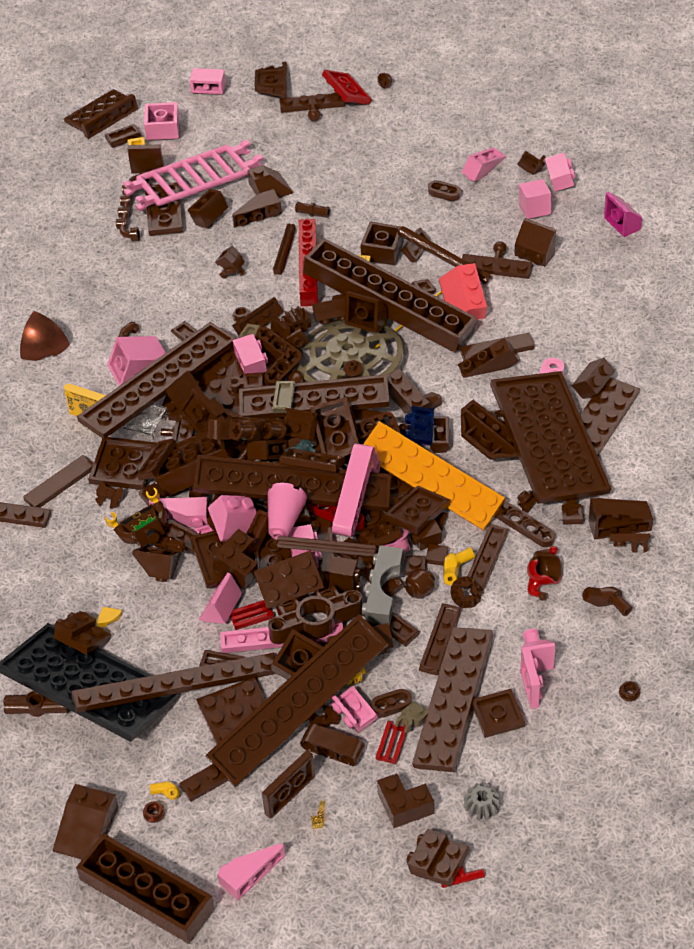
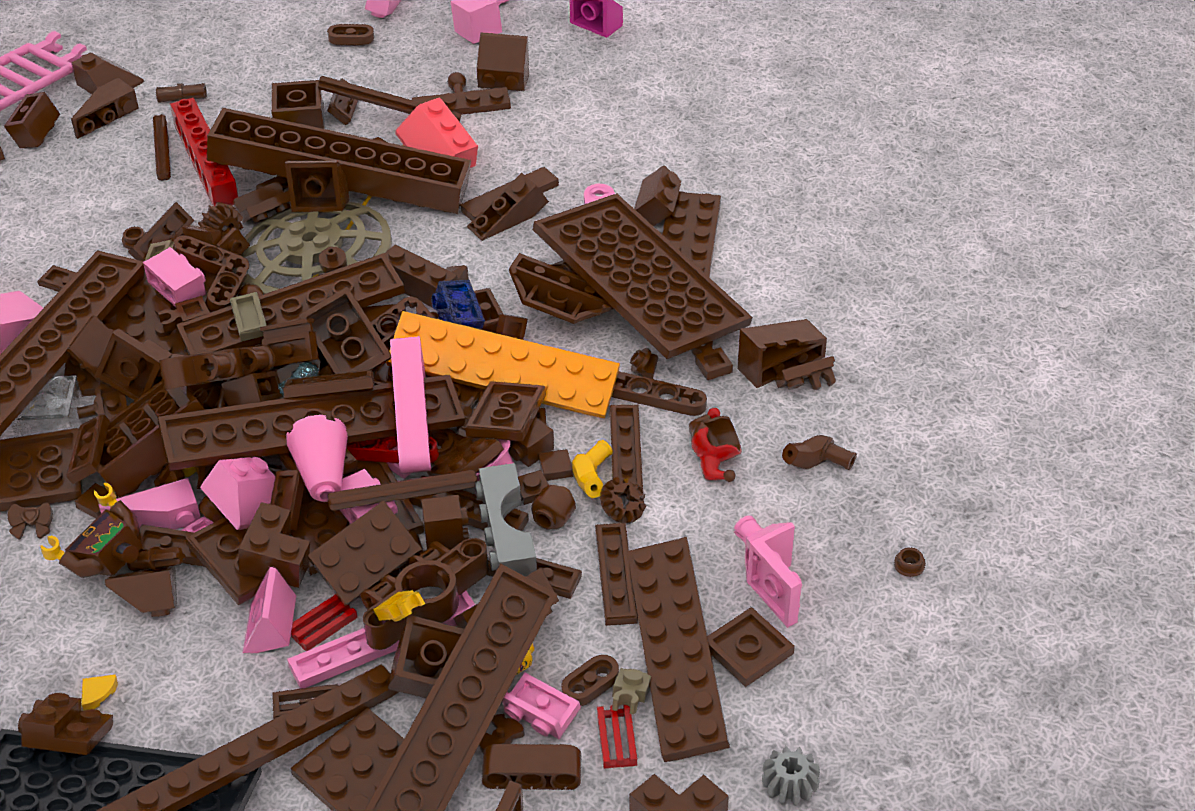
camera: 25 degrees left, 5 degrees down
(231, 262) = (93, 175): reddish brown piece -> none
(289, 621) = (399, 606): none -> yellow plate
(449, 451) = (512, 326): none -> reddish brown plate

